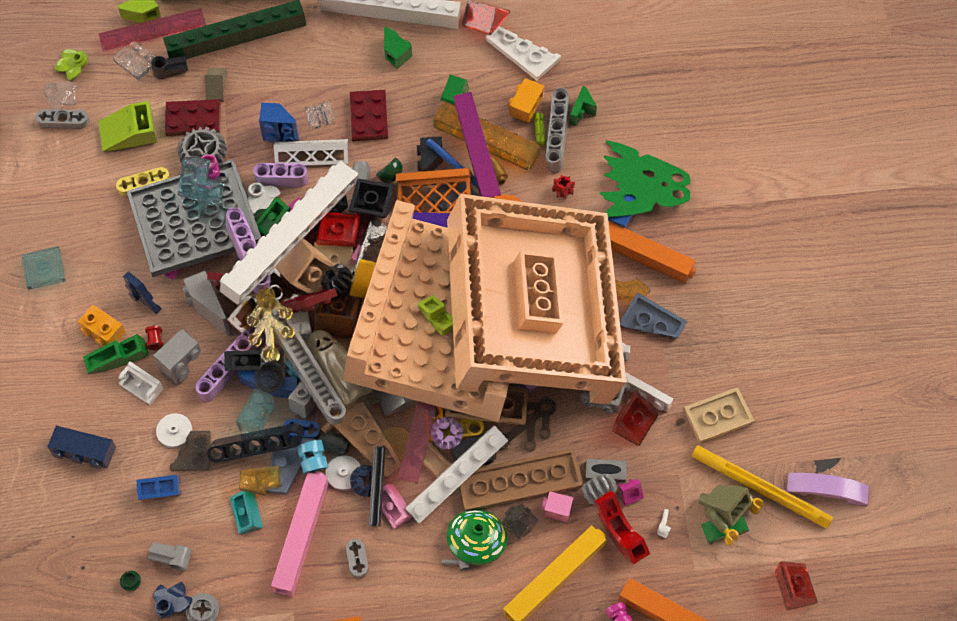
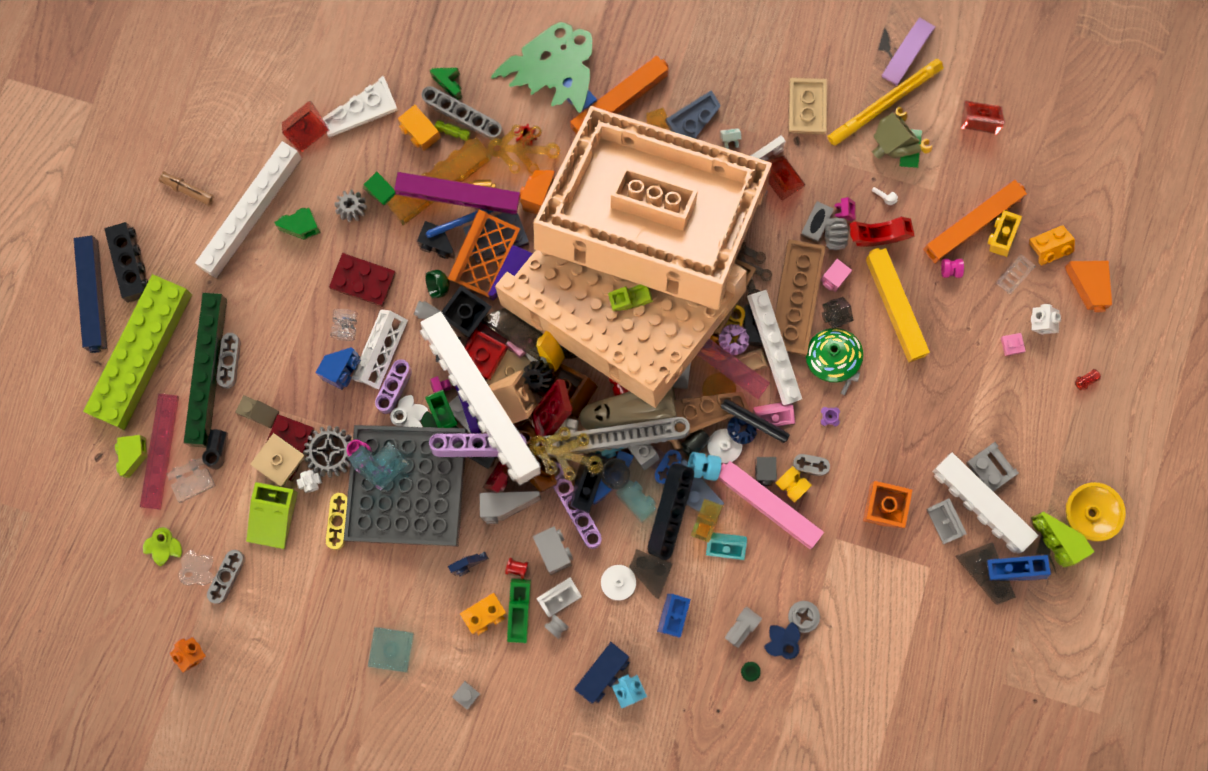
camera: 65 degrees left, 15 degrees up
(23, 343) = (466, 695): none -> light grey plate
(72, 475) = (629, 690): none -> medium azure brick
(111, 391) = (556, 626): none -> light grey wheel
(168, 144) = (309, 481): none -> white gear
(177, 112) = (277, 460): none -> tan plate
(240, 54) = (234, 366): none -> light grey beam
(330, 543) = (793, 484): none -> yellow wheel
(333, 516) = (765, 470): none -> dark grey brick
(410, 563) = (830, 411): none -> medium lavender plate
(430, 78) = (346, 201): none -> light grey gear
(546, 183) = (521, 148): none -> clear yellow plant
(652, 357) = (730, 135): none -> light aqua tile

